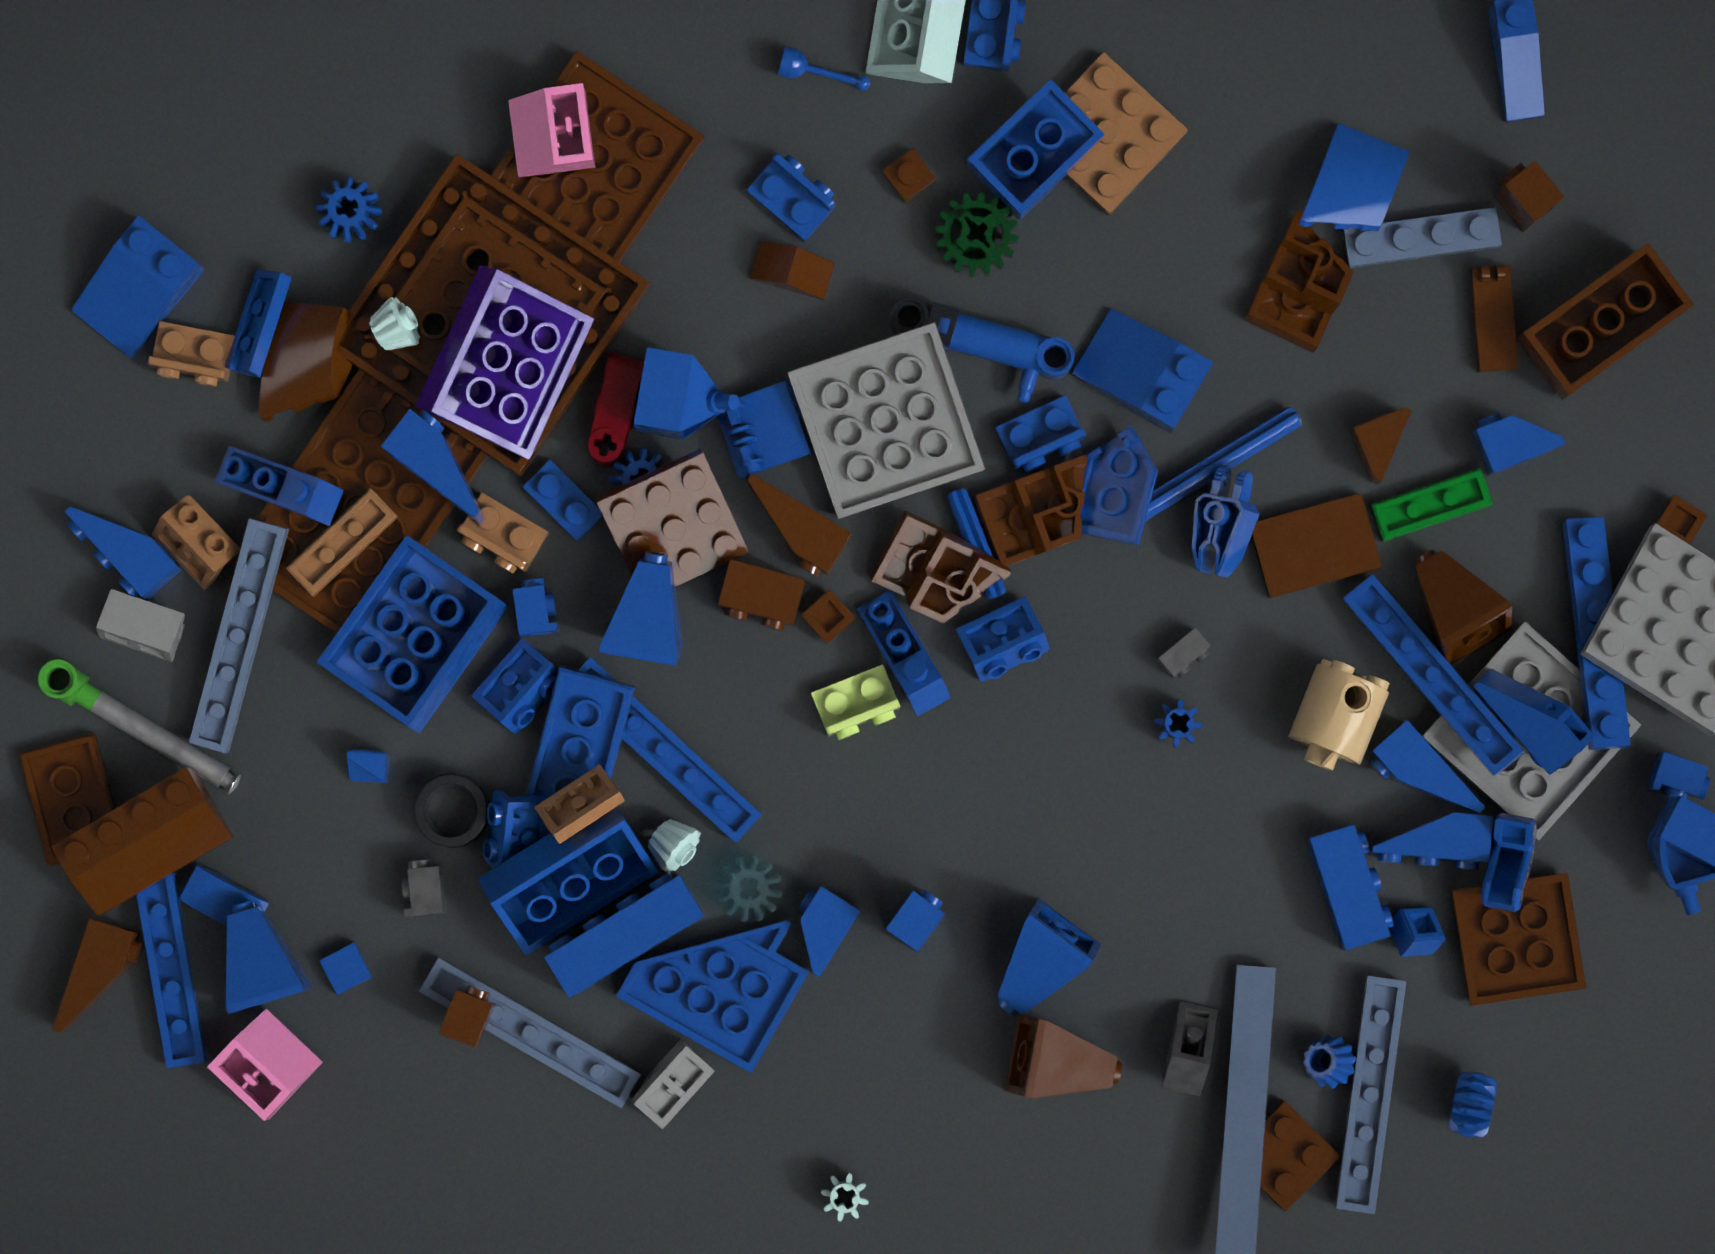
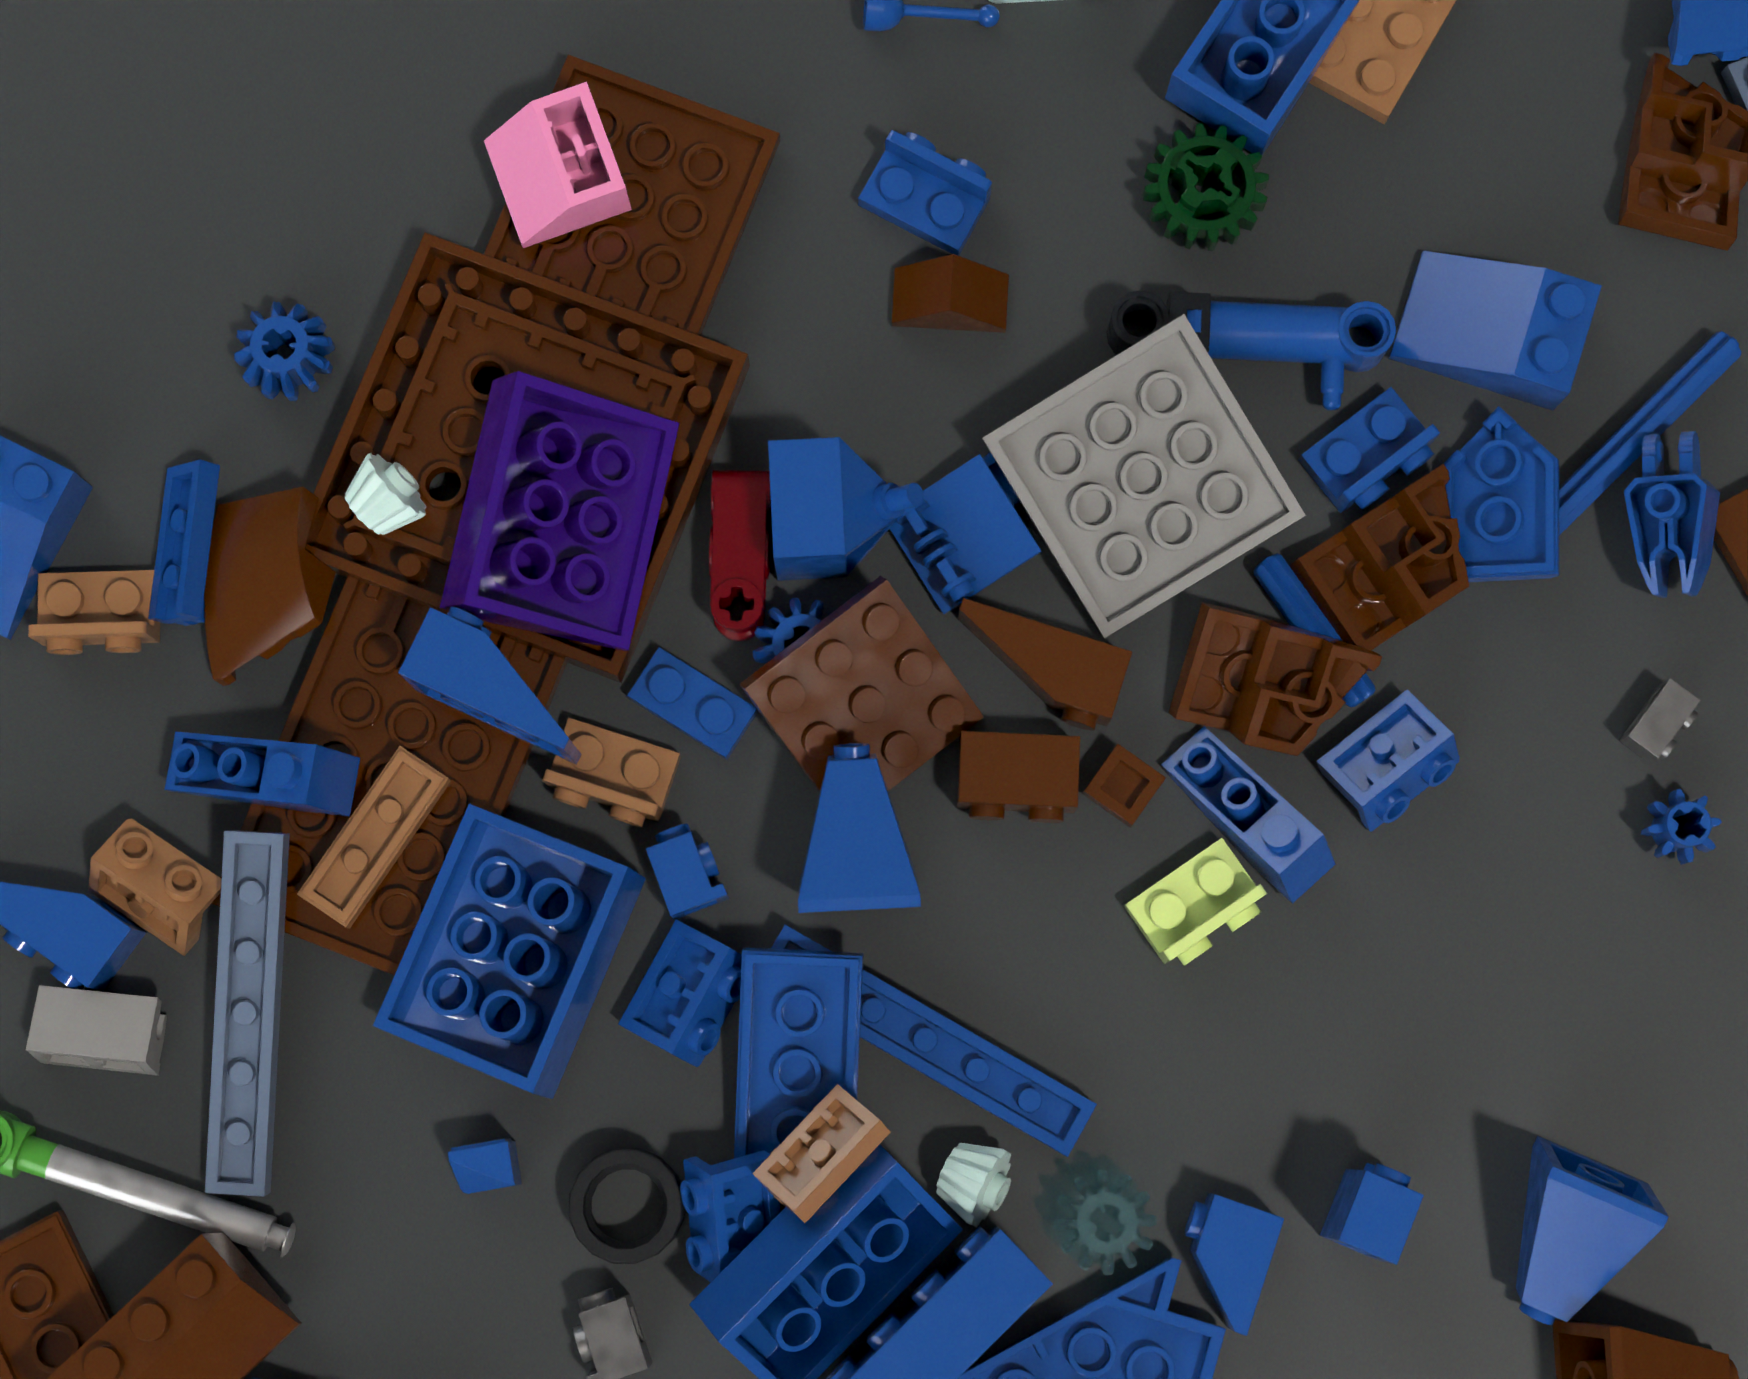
camera: 10 degrees left, 5 degrees down
(909, 175) = (1086, 128): reddish brown plate -> none

